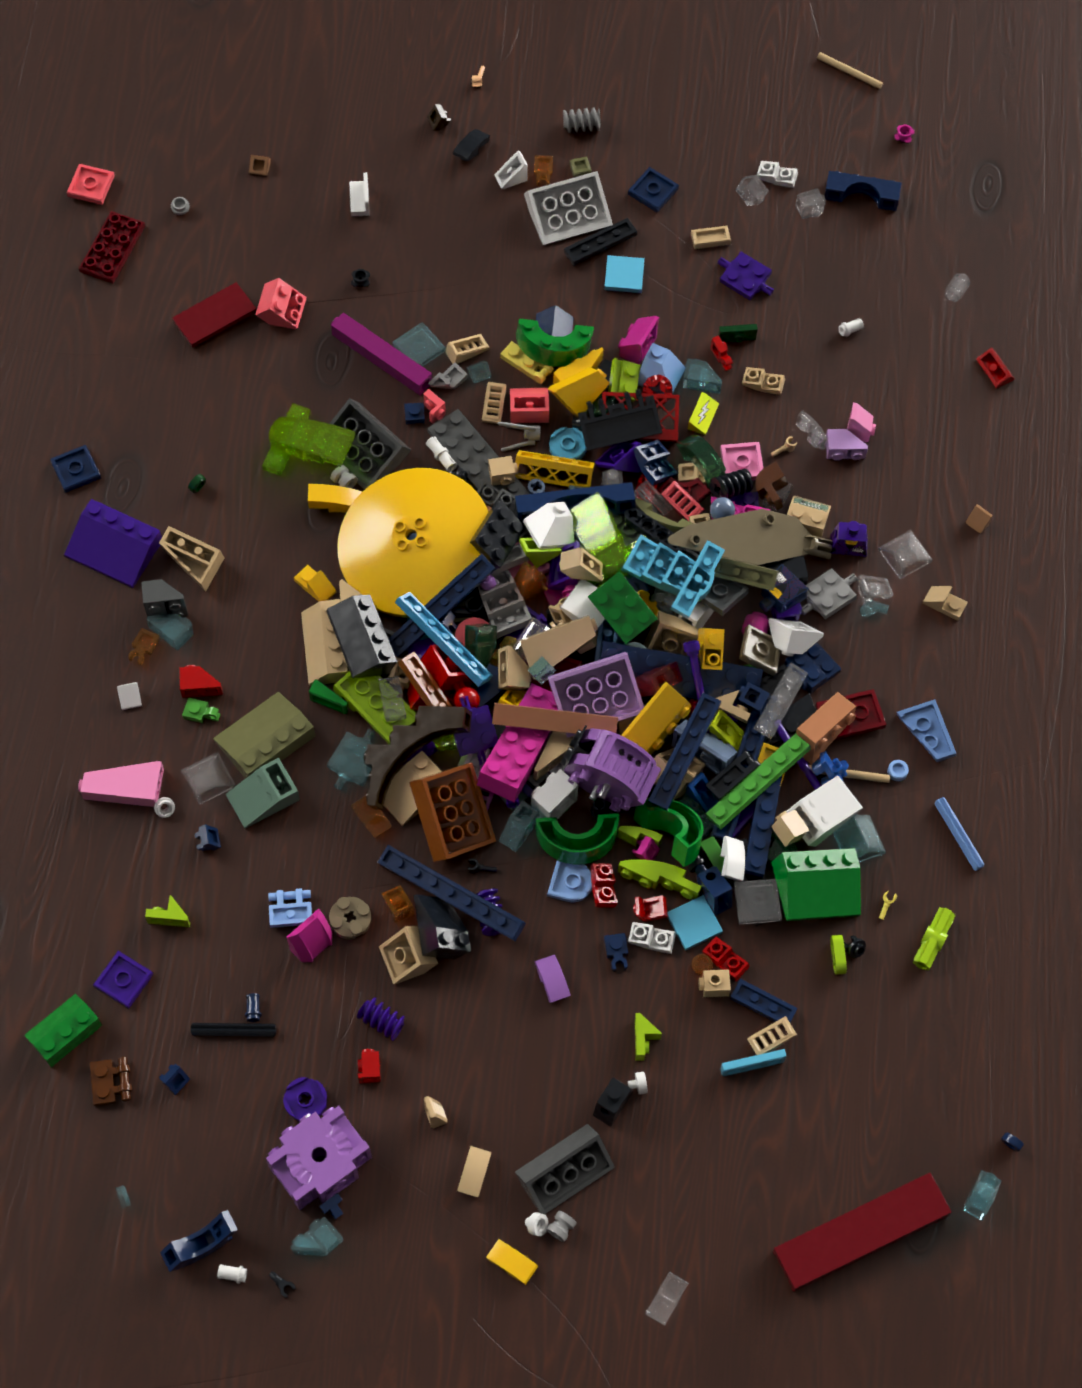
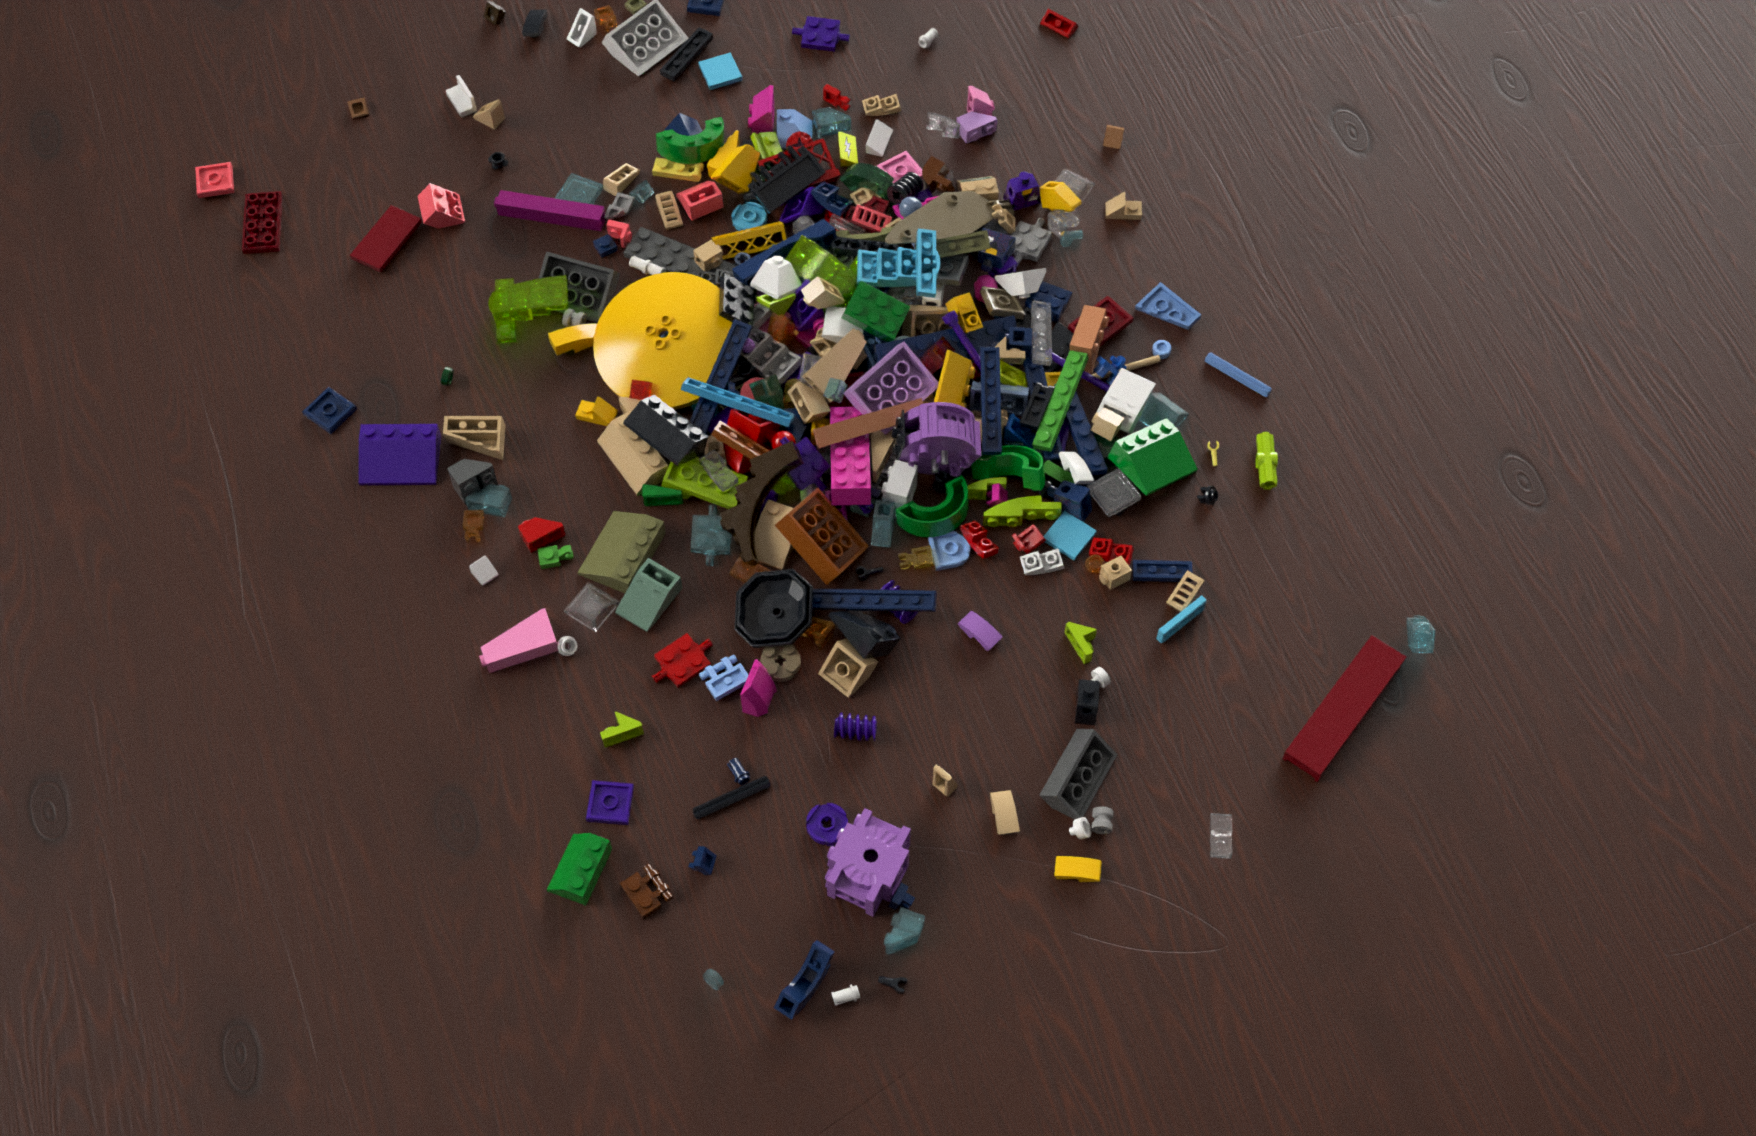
camera: 25 degrees left, 5 degrees down
(180, 206) = (305, 166): light grey plate -> none
(209, 838) = (621, 652): dark blue tile -> none
(261, 872) = (682, 660): none -> red plate
(357, 852) = (763, 597): none -> black rock
(363, 582) = (640, 389): none -> clear red plate
(369, 1066) = (867, 770): red brick -> none
(378, 226) = (491, 114): none -> tan slope
(531, 433) = (713, 220): light grey plant -> none
(536, 877) = (920, 558): none -> clear yellow plate
(616, 948) = (1018, 583): dark blue plate -> none
(710, 237) = (775, 16): tan tile -> none
(738, 333) = (841, 76): dark green plate -> none
(740, 416) = (878, 139): none -> white slope
(786, 447) = (929, 146): tan hand -> none
(816, 561) = (1005, 218): none -> tan plate
(838, 954) = (1199, 506): lime beam -> none
(882, 561) = (1058, 196): none -> yellow slope
(1012, 1141) = (1418, 584): dark blue tile -> none

